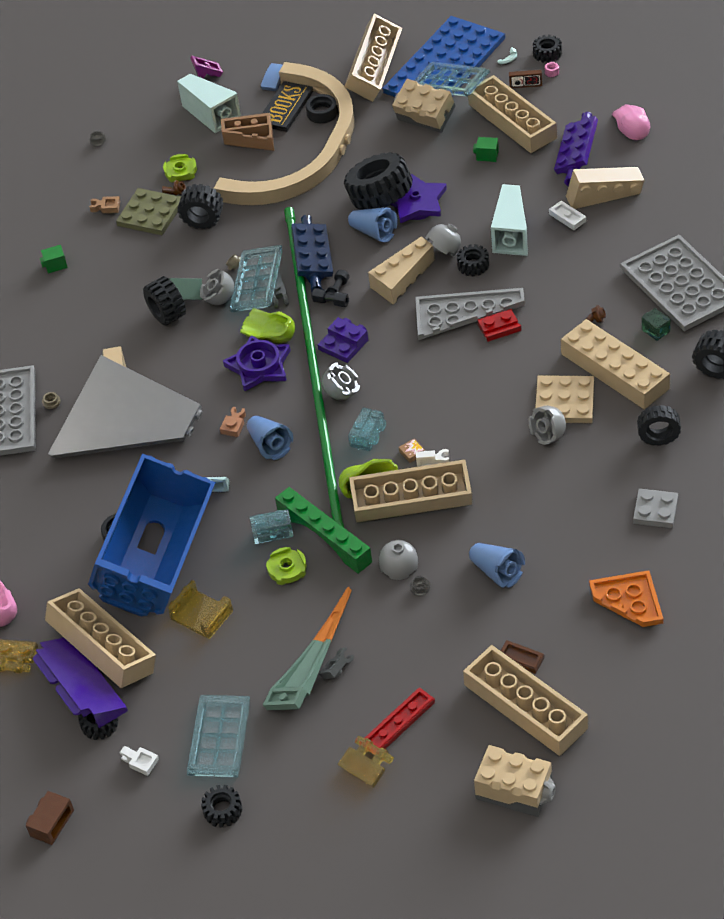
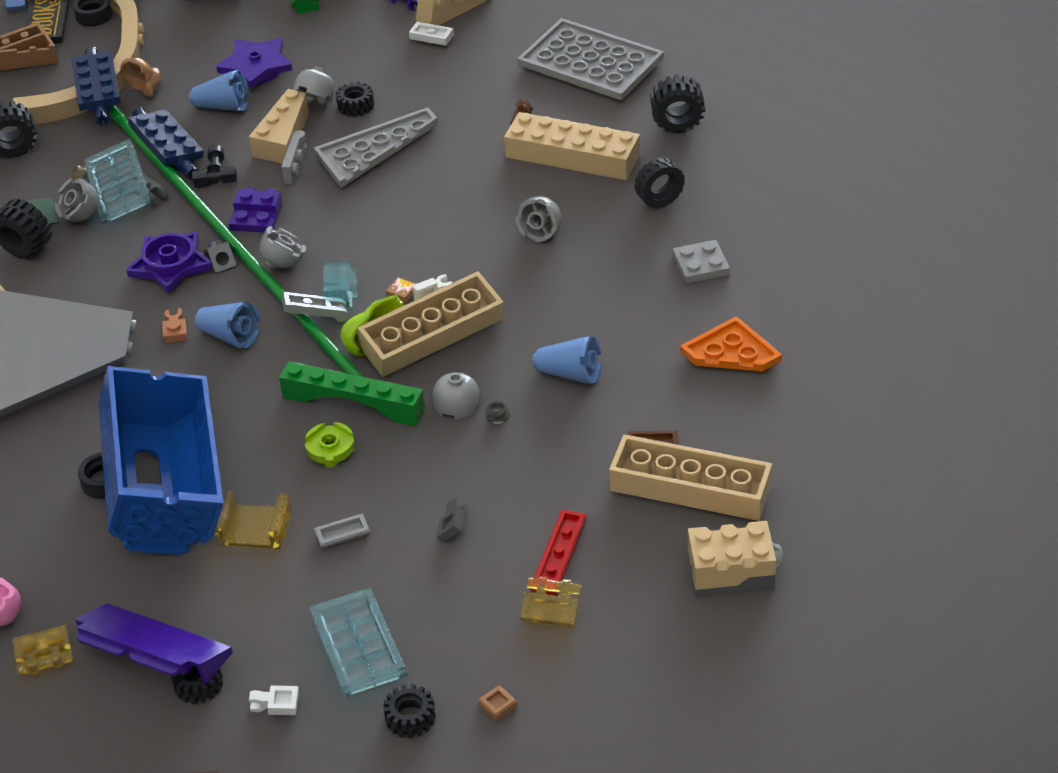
camera: 30 degrees left, 5 degrees down
(100, 638) = (150, 587): tan brick -> none
(256, 642) = (342, 531): none -> light grey tile
(269, 326) = (165, 218): lime hair -> none
(271, 526) = (288, 409): clear light blue brick -> none
(283, 183) = (96, 83): none -> dark blue plate
(286, 825) = (497, 703): none -> medium nougat tile
(296, 364) = (216, 247): none -> flat silver bracket
(299, 679) = (420, 545): sand green plate -> none
(323, 186) = (140, 75): none -> medium nougat hair
(337, 443) = (315, 306): none -> light grey plate
(378, 181) = (207, 50): black tyre -> none
(396, 300) = (294, 156): none -> light grey plate
(499, 325) = (421, 149): red plate -> none
(509, 223) = (379, 52): light aqua slope -> none
(569, 394) = (541, 182): tan plate -> none
(655, 324) = (590, 100): clear green brick -> none

